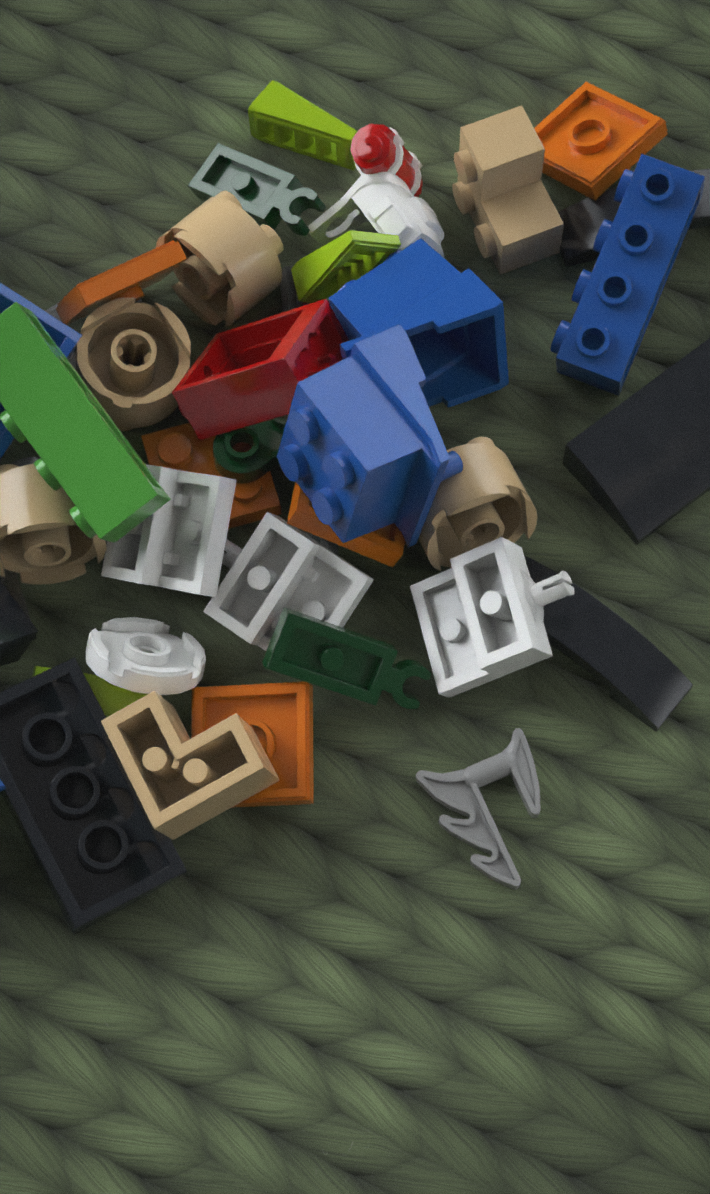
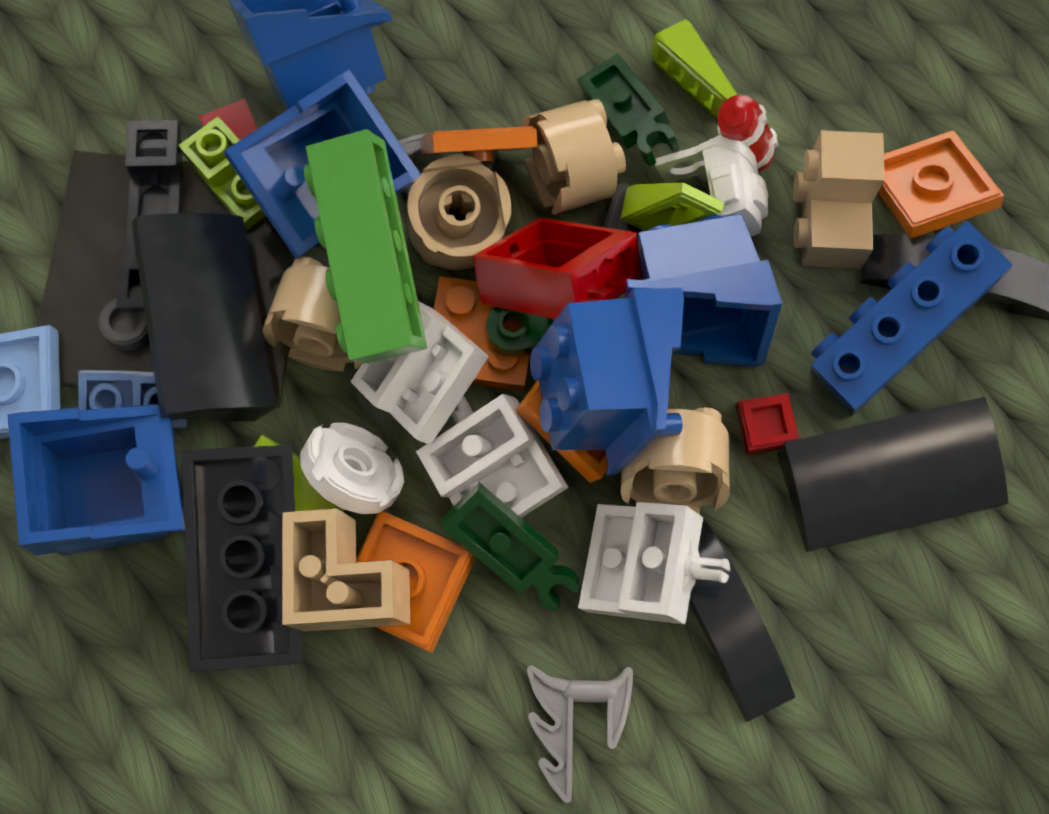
camera: 20 degrees right, 5 degrees up
(537, 438) = (766, 423): none -> red tile

